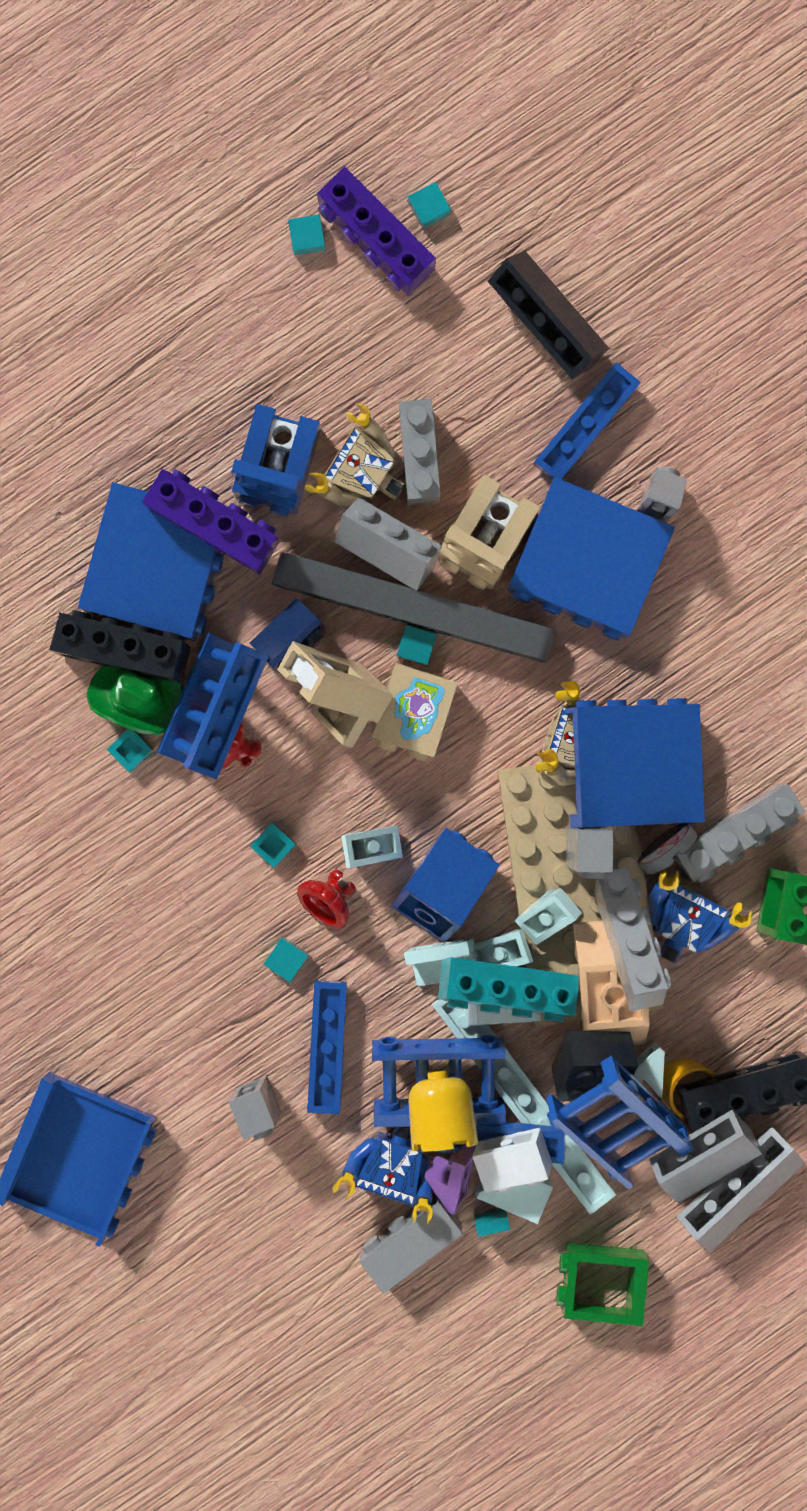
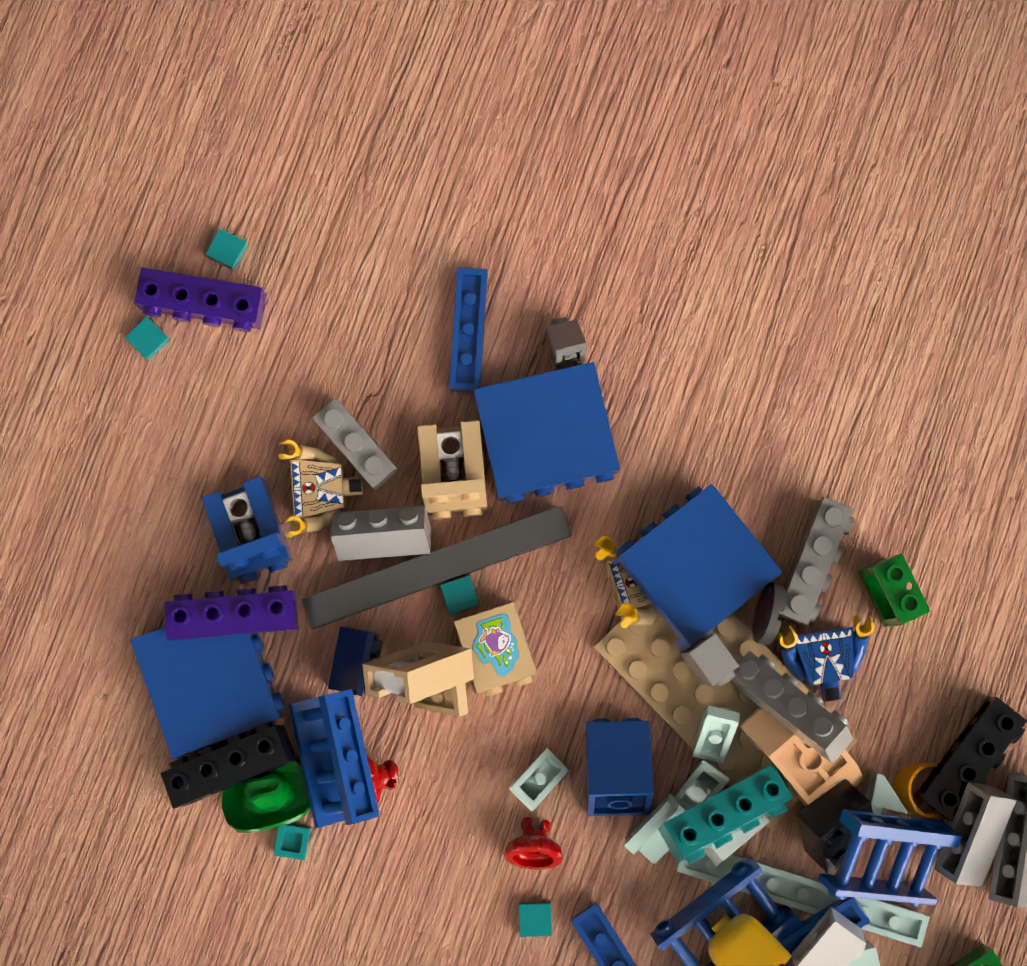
camera: 40 degrees left, 5 degrees down
(273, 845) = (460, 835): teal tile -> none
(548, 314) = (379, 269): black brick -> none

